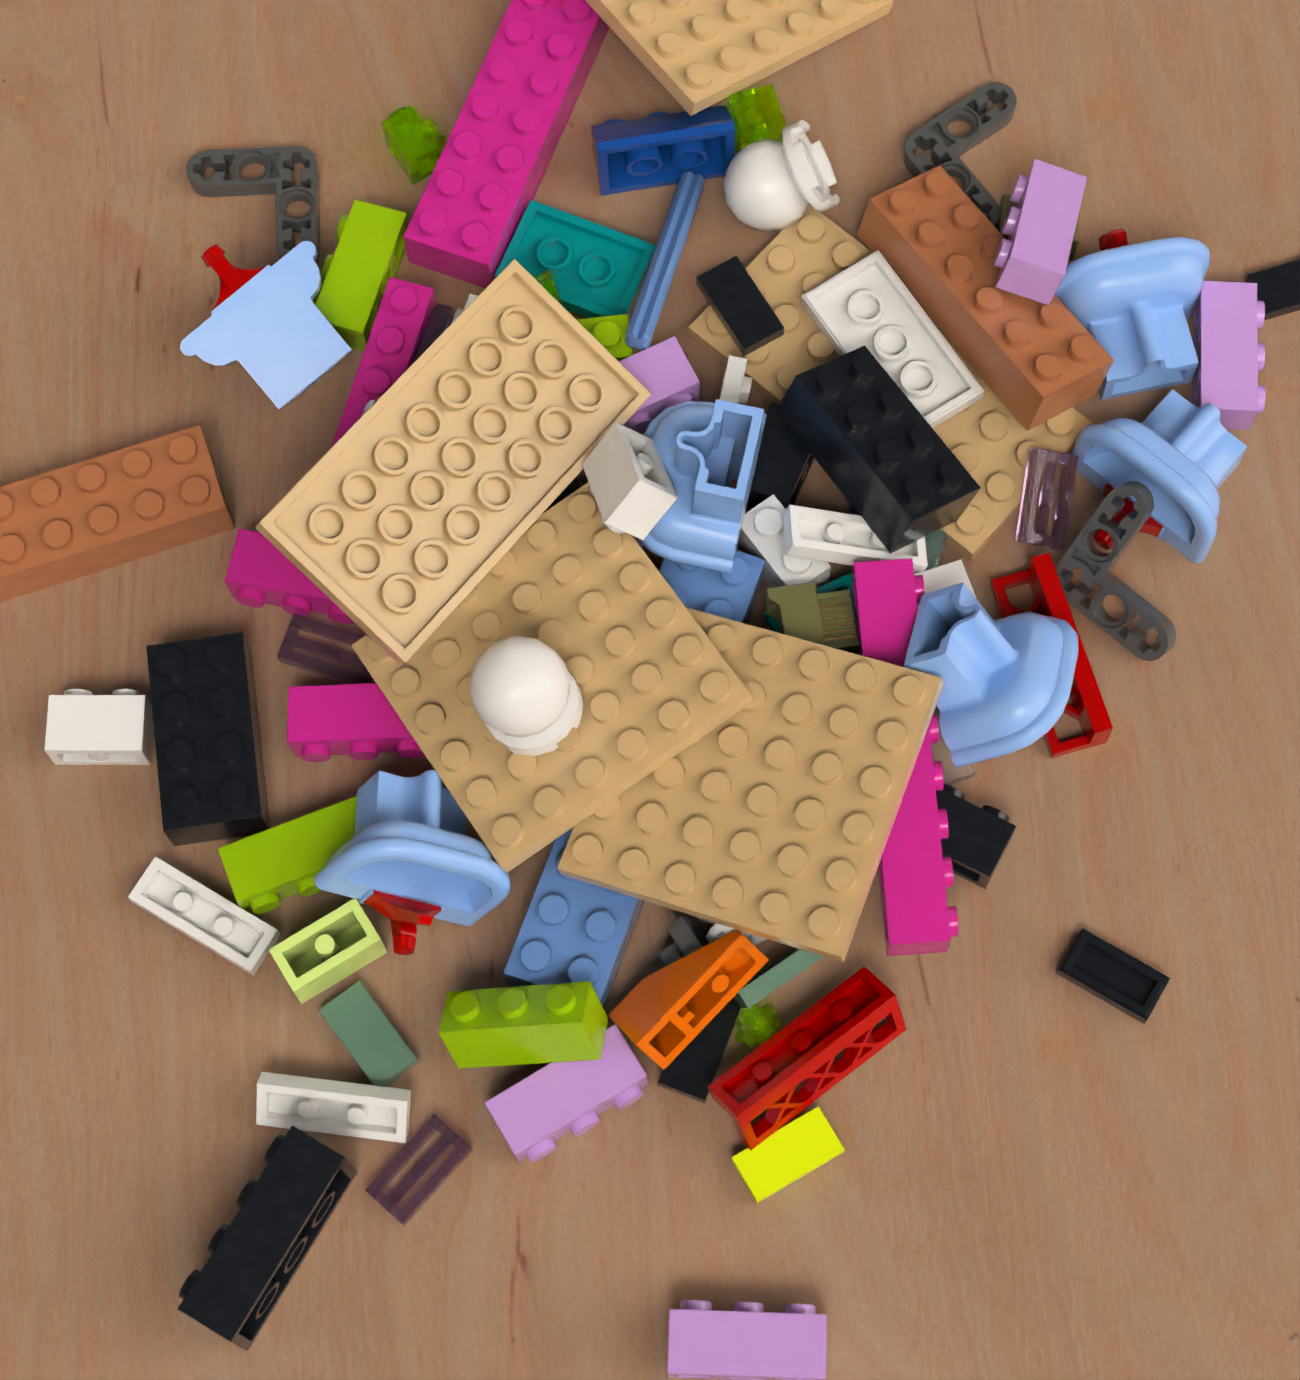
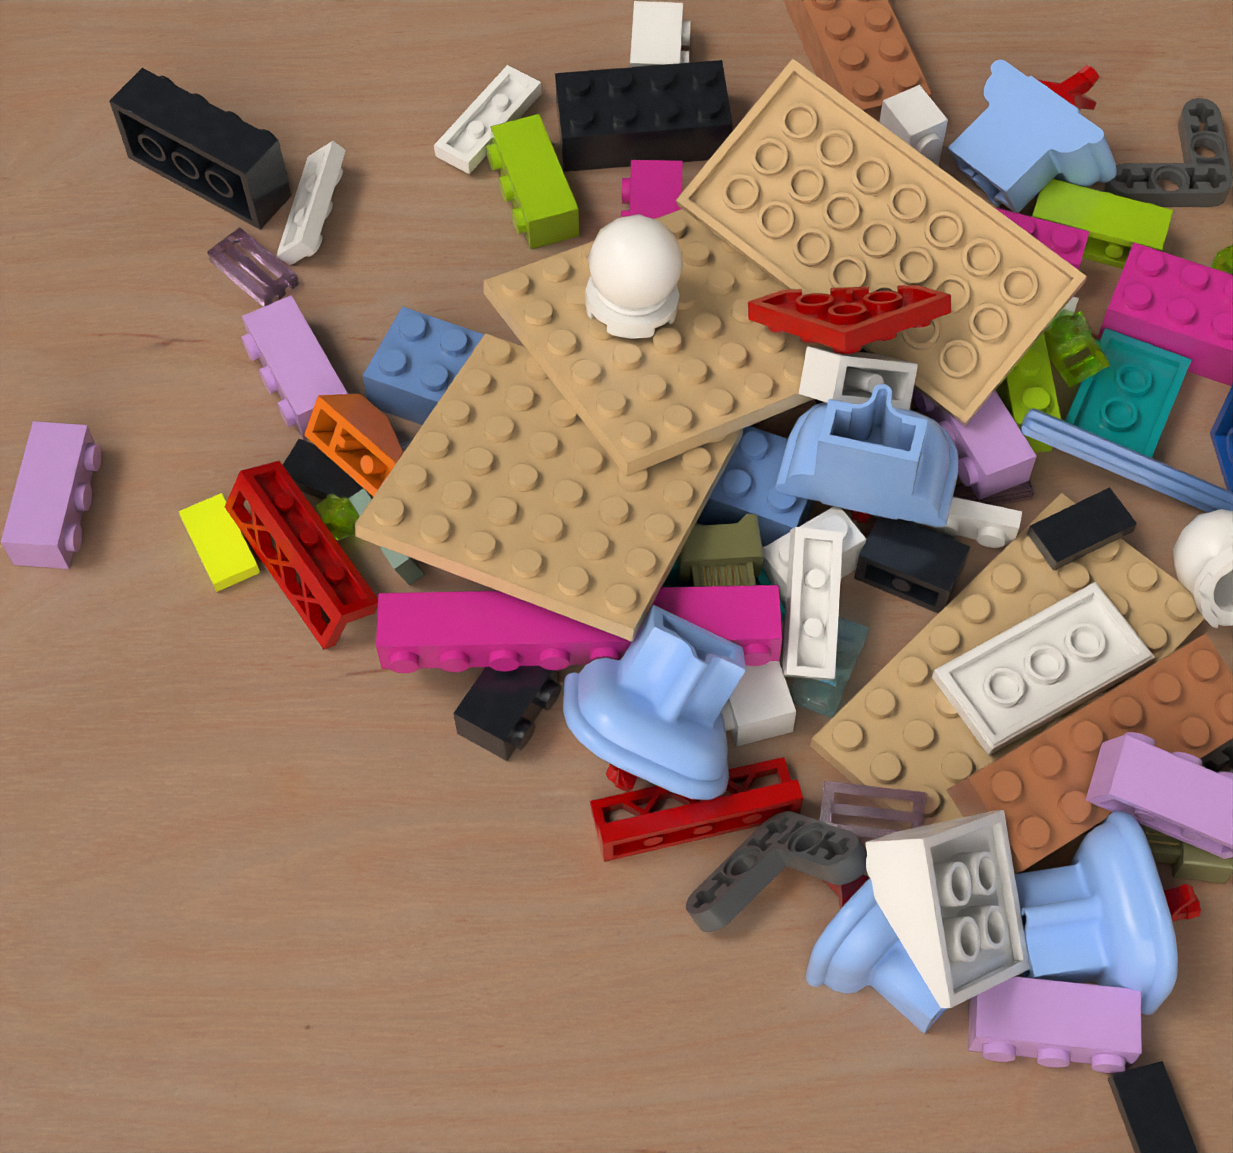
camera: 90 degrees right, 10 degrees down
(260, 448) = (916, 121): none -> white brick
(328, 950) = (442, 192): yellowish green brick -> none
(368, 1035) = (372, 234): sand green tile -> none
(414, 858) = (507, 227): light blue piece -> none
(523, 1025) = (353, 321): lime brick -> none
(566, 484) = (849, 314): none -> red plate
(877, 448) = (913, 626): black brick -> none
(1113, 976) = (351, 841): black tile -> none
(1168, 413) = (953, 903): none -> white slope

